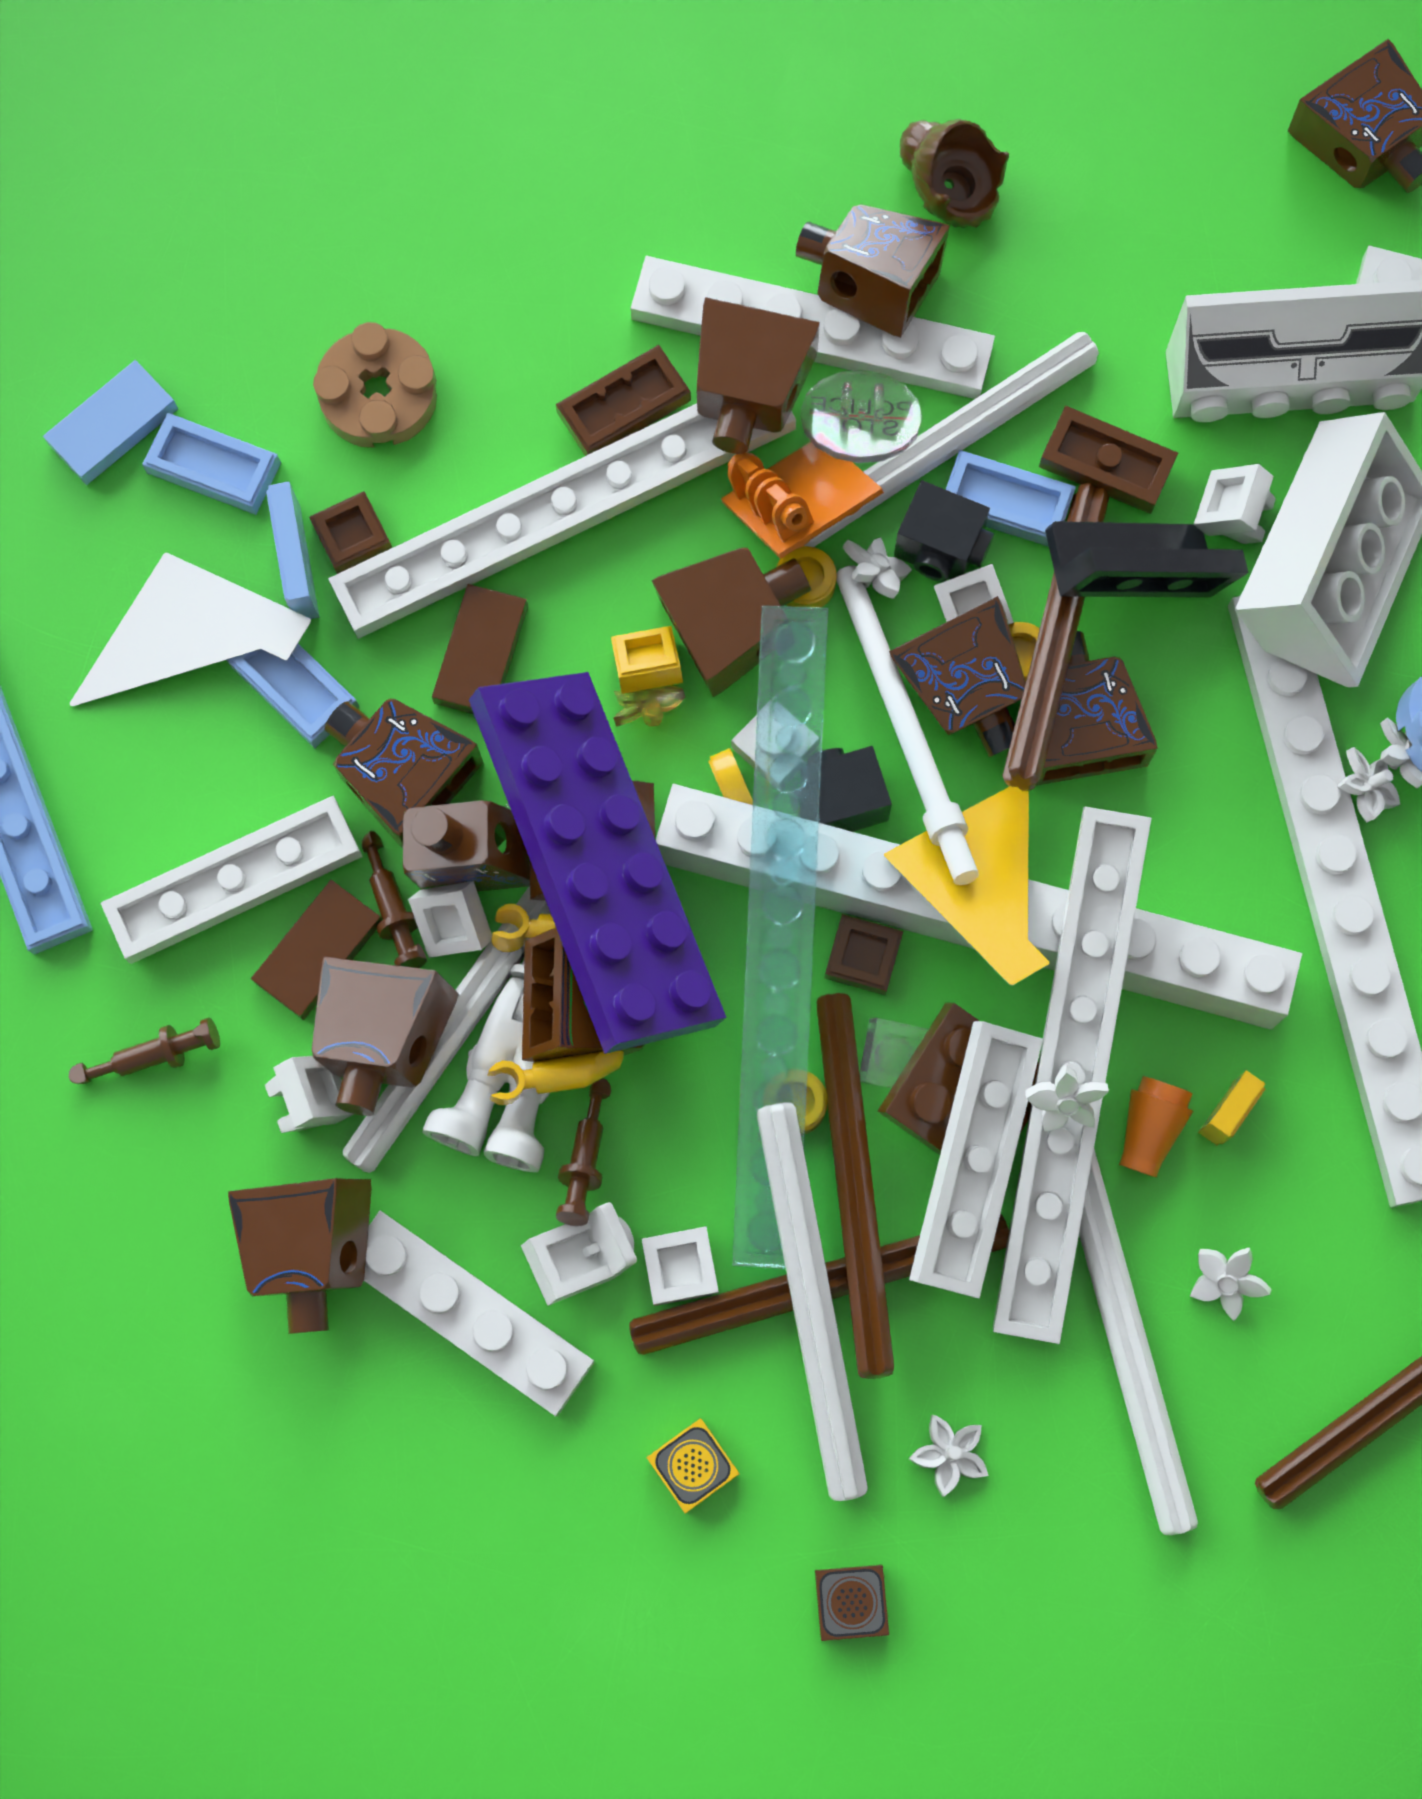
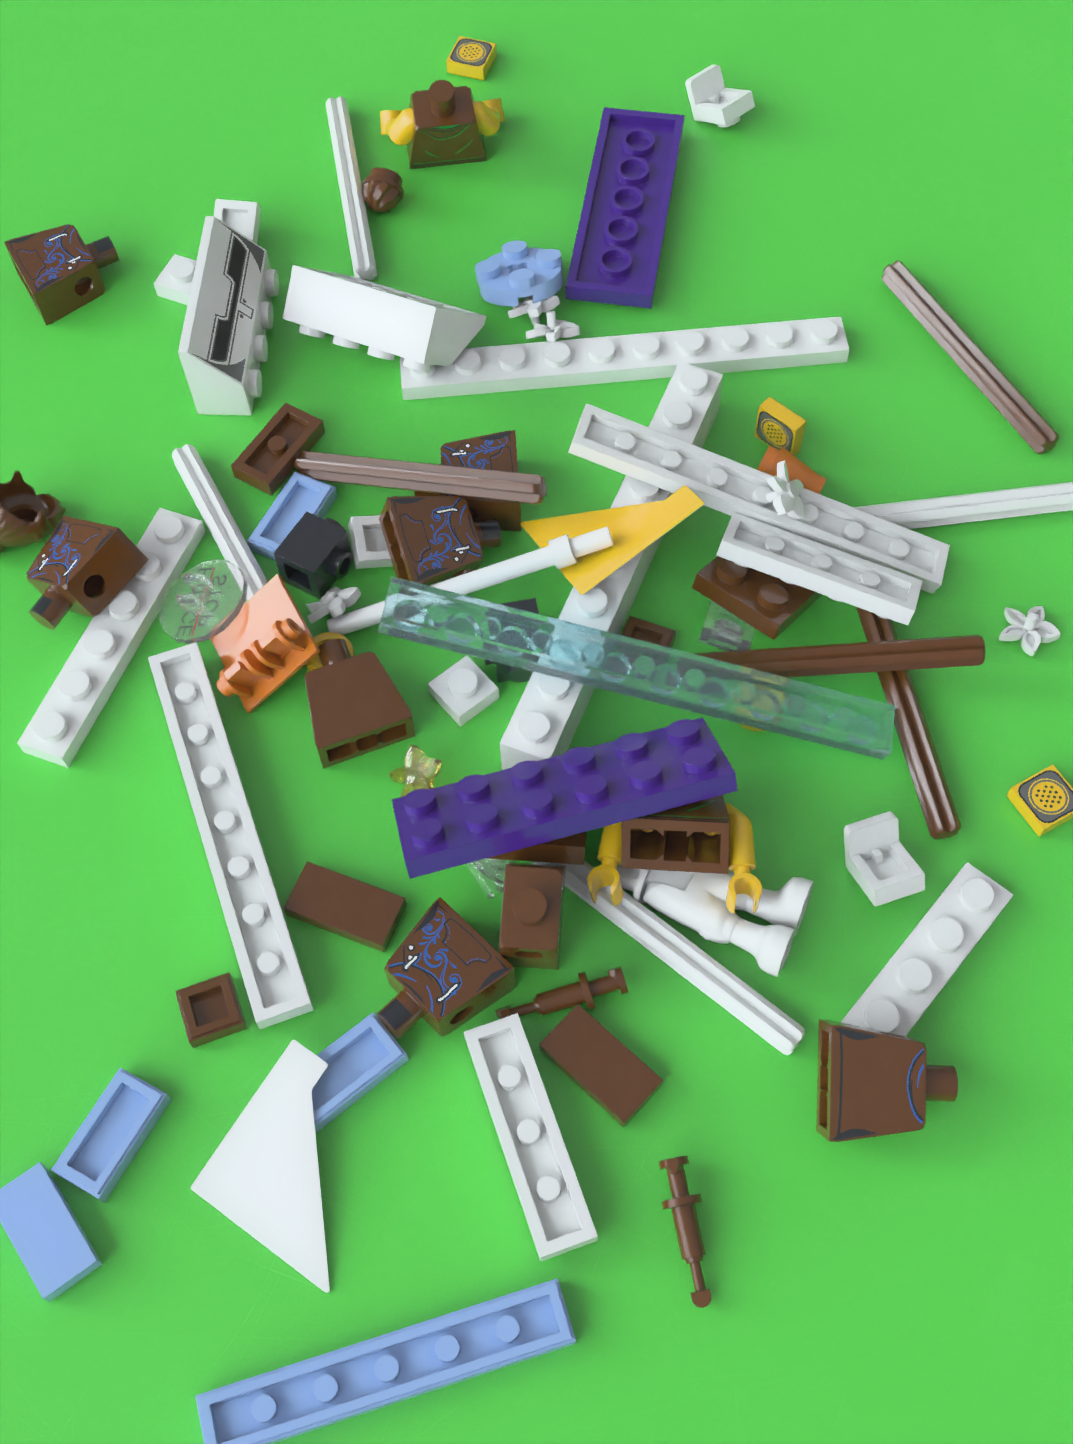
camera: 85 degrees left, 15 degrees down
(292, 550) = (220, 1054): light blue tile -> none
(308, 1094) = (735, 1070): white tile -> none
(370, 354) = (56, 951): medium nougat plate -> none
(378, 1026) = (684, 1002): torso -> none
(450, 919) = (589, 939): white plate -> none
(581, 1174) = (814, 854): reddish brown piece -> none
(624, 401) = (146, 772): reddish brown plate -> none
(646, 659) = (379, 772): yellow tile -> none
(680, 1266) = (892, 789): white plate -> none
(730, 777) = (491, 717): yellow tile -> none
(751, 369) = (149, 659): reddish brown torso -> none
(812, 1302) = (920, 691): white axle -> none
(1139, 560) = (366, 429): black panel -> none
(1228, 1280) = (901, 447): white plant -> none
(1235, 503) = (331, 375): white tile -> none

